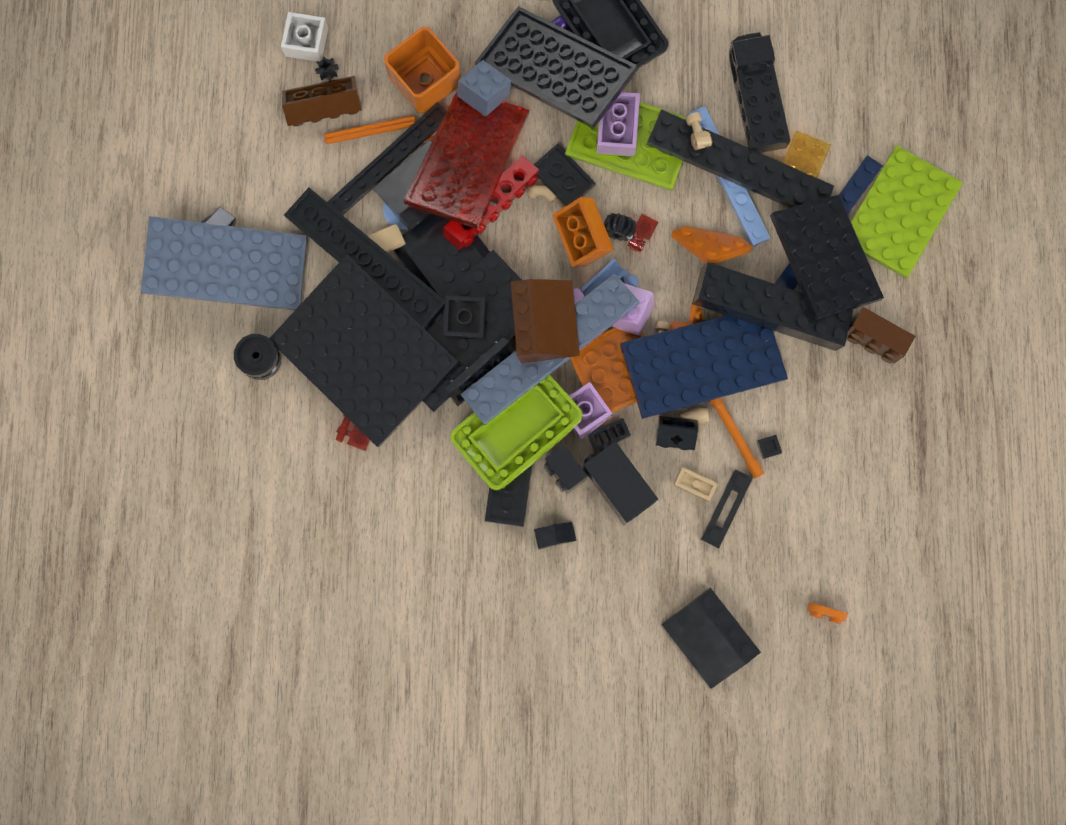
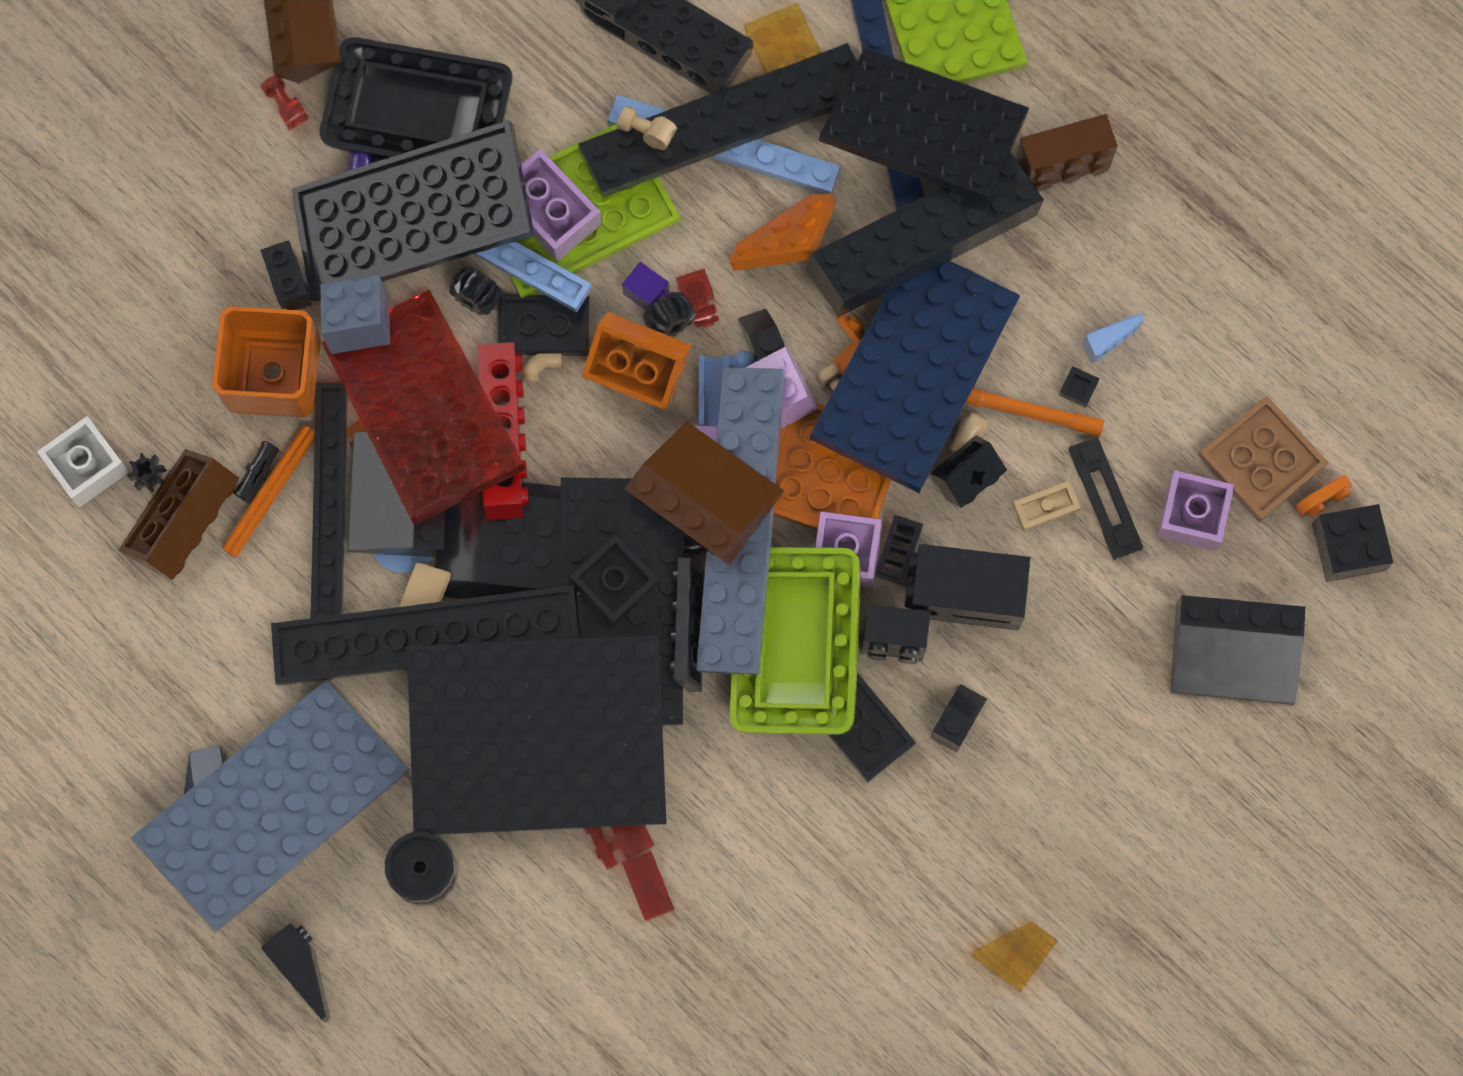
camera: 50 degrees left, 5 degrees down
(167, 343) = (298, 963): none -> black slope
(344, 465) = (648, 886): none -> clear red plate
(373, 115) = (256, 471): none -> black pin
(467, 664) = (1016, 954): none -> clear yellow wing
(474, 42) = (286, 276): none -> black brick
(547, 130) = (475, 291): none -> black gear
(582, 150) = (538, 273): none -> light blue plate
(624, 203) = (644, 286): none -> dark purple brick
(652, 277) = (761, 334): none -> black slope
(759, 556) = (1195, 510): none -> lavender brick
(805, 438) = (1107, 338): none -> light blue slope
(816, 646) = (1352, 542): none -> black brick
(818, 566) = (1263, 458): none -> medium nougat plate

